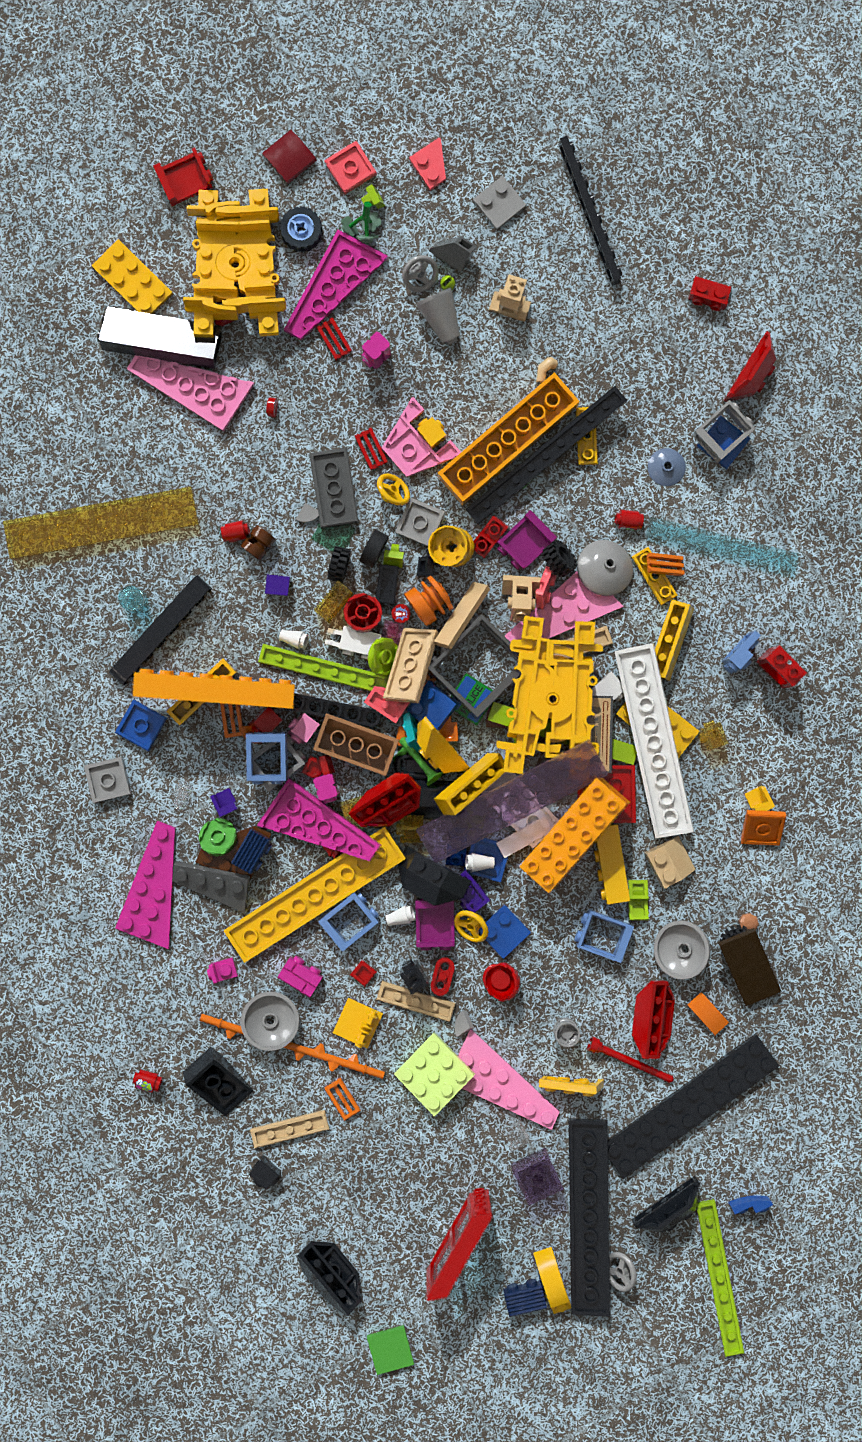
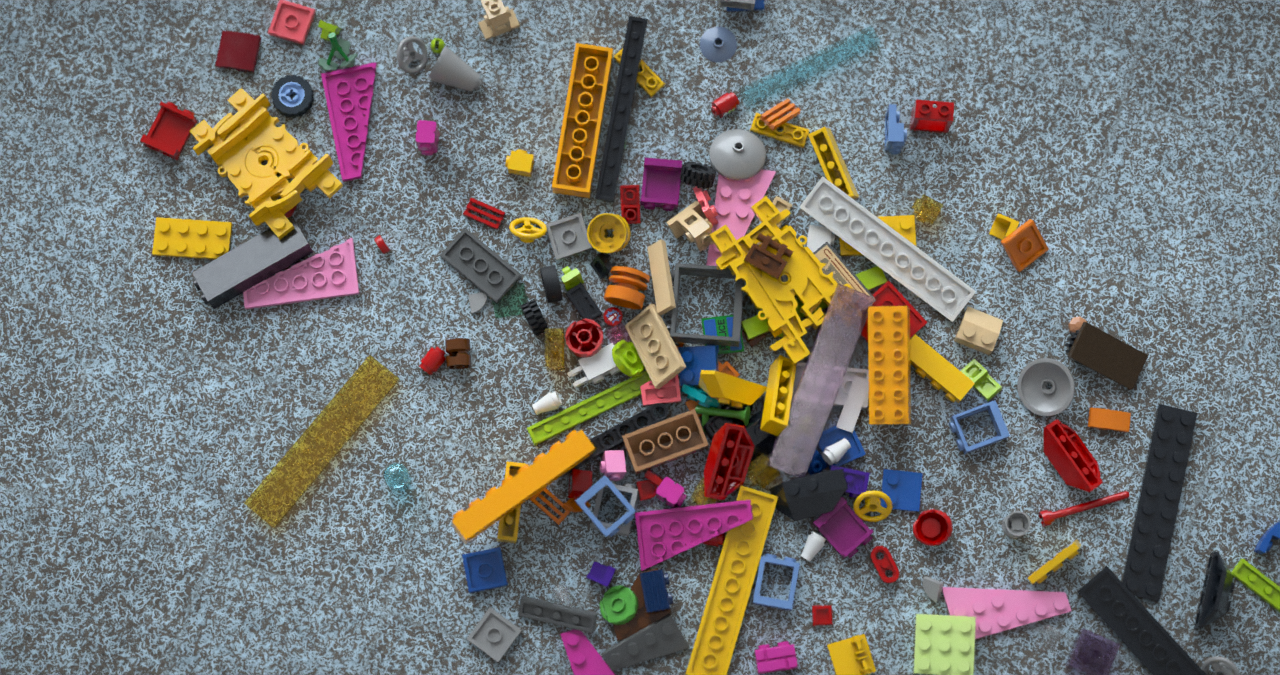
camera: 40 degrees left, 10 degrees down
(156, 633) = (437, 484): black beam -> none
(166, 805) = (557, 614): none -> dark grey tile
(277, 585) = (500, 373): dark purple panel -> none
(326, 325) = (371, 151): red tile -> none
(409, 449) = (513, 189): bright pink wing -> none
(413, 976) = (862, 580): black hinge -> none
(416, 1002) = (881, 602): tan tile -> none
(454, 251) = (423, 18): dark grey slope -> none
(544, 367) = (563, 47): tan arm -> none
(549, 673) = (765, 260): none -> reddish brown plate

